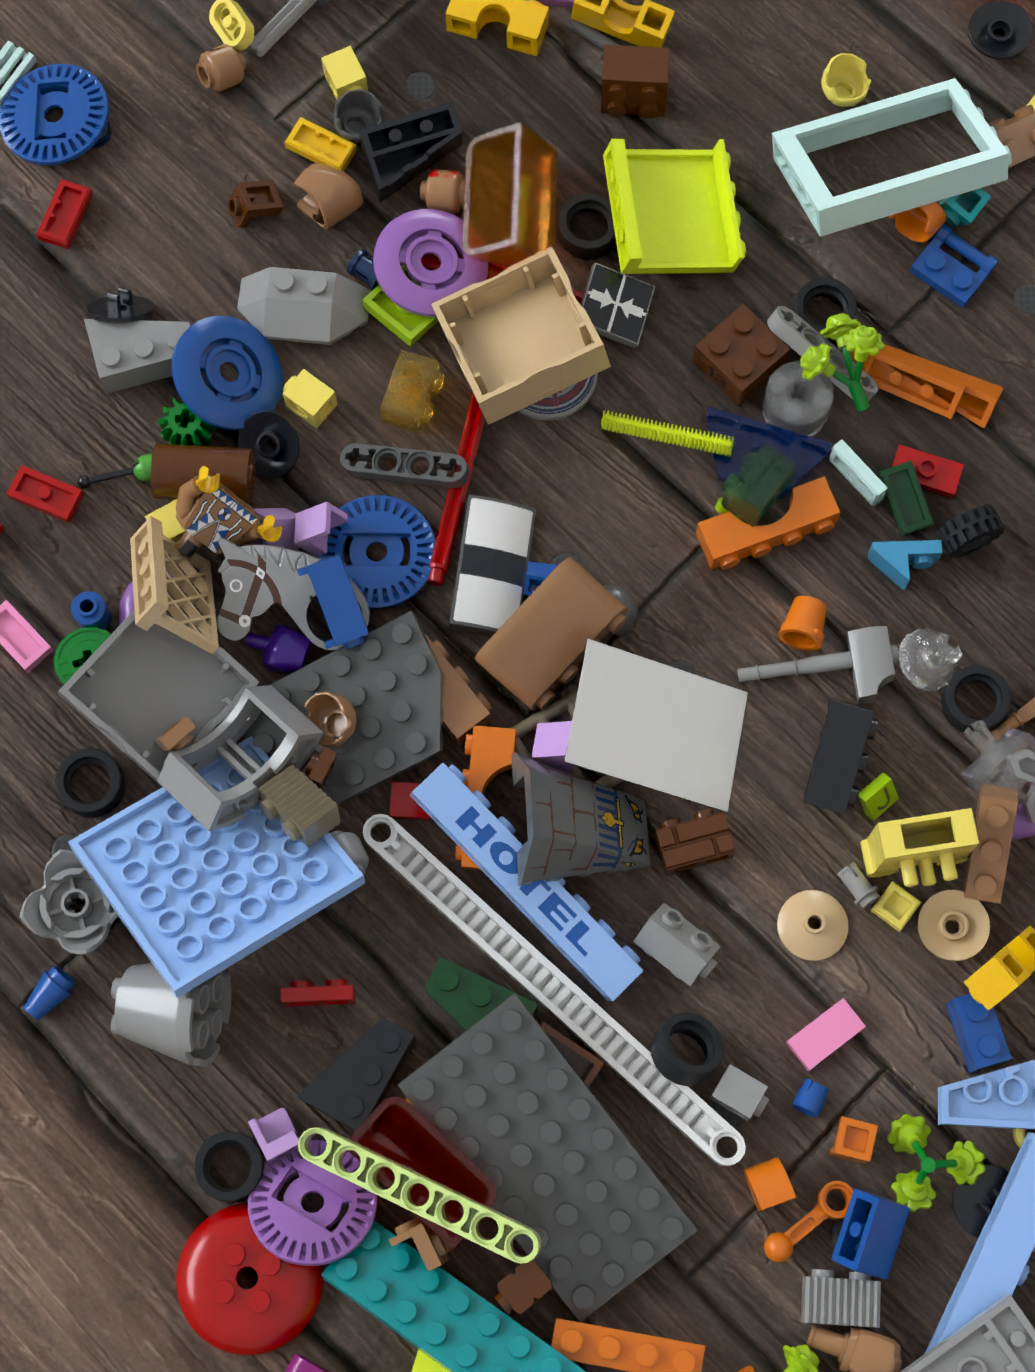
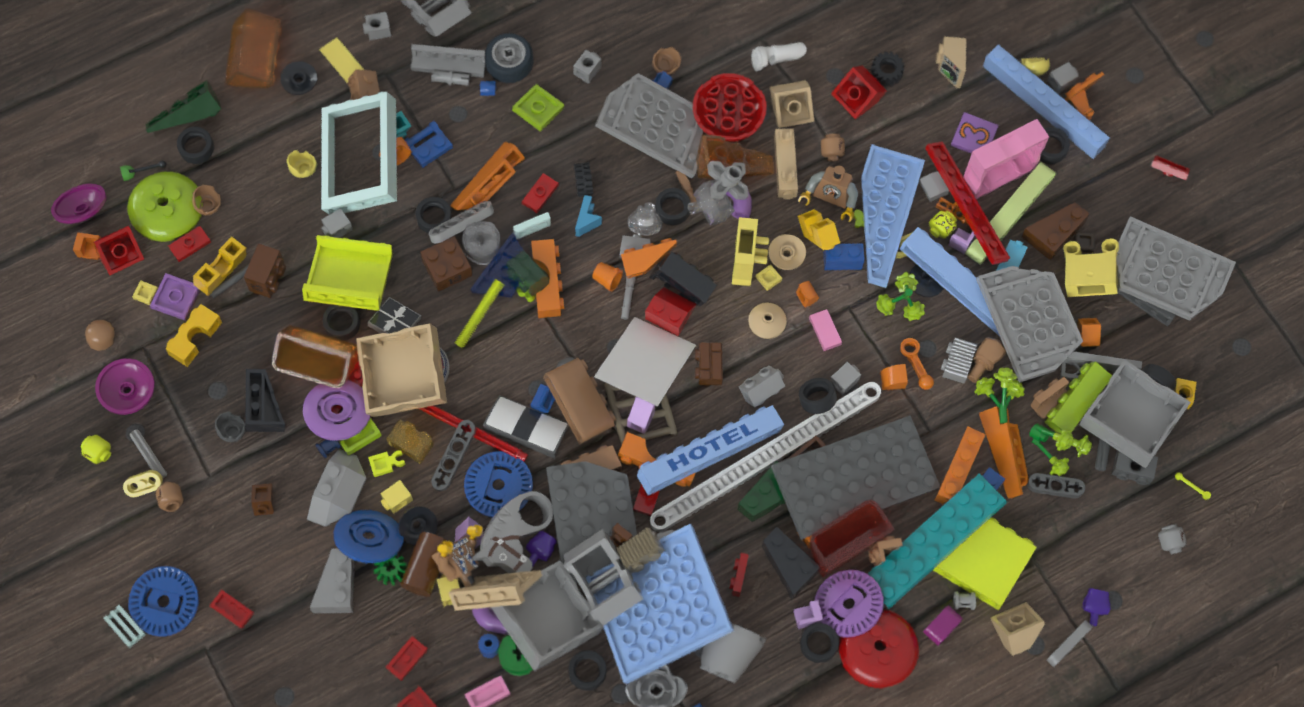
camera: 80 degrees left, 5 degrees down
(120, 307) = (307, 588): black piece -> none
(141, 469) = (408, 599): hinge -> none
(176, 736) = (578, 611): medium nougat plate -> none
(314, 526) = (478, 508): lavender panel -> none
(320, 145) = (239, 453): yellow plate -> none
(330, 194) = (275, 455): medium nougat piece -> none
(333, 716) = (593, 522): medium nougat hair -> none
(337, 601) = (530, 503): blue brick -> none
(343, 72) = (200, 428): light yellow brick -> none
(363, 362) = (382, 463): none -> neon yellow plate
(400, 1191) = (871, 528): yellowish green beam -> none
(444, 191) = (294, 391): medium nougat head -> none
(520, 1289) = (918, 506): reddish brown brick -> none
(576, 825) = (687, 411): dark grey wedge -> none
(755, 167) = (336, 224): none -> light grey brick
(776, 747) = (669, 311): none -> red slope
(810, 1098) = (856, 345): blue hose -> none
(844, 670) = (642, 260): none -> orange slope
(849, 337) = (471, 194): lime plant -> none
(854, 1140) = (884, 329): orange panel -> none
(859, 885) = (754, 291): light grey pin -> none
(870, 1234) = (931, 335): blue brick -> none
(878, 796) = (710, 267): lime tile -> none
(884, 982) = (807, 294): none -> orange brick
(906, 498) = (554, 206): dark green tile -> none
(994, 829) = (767, 225): medium nougat brick -> none

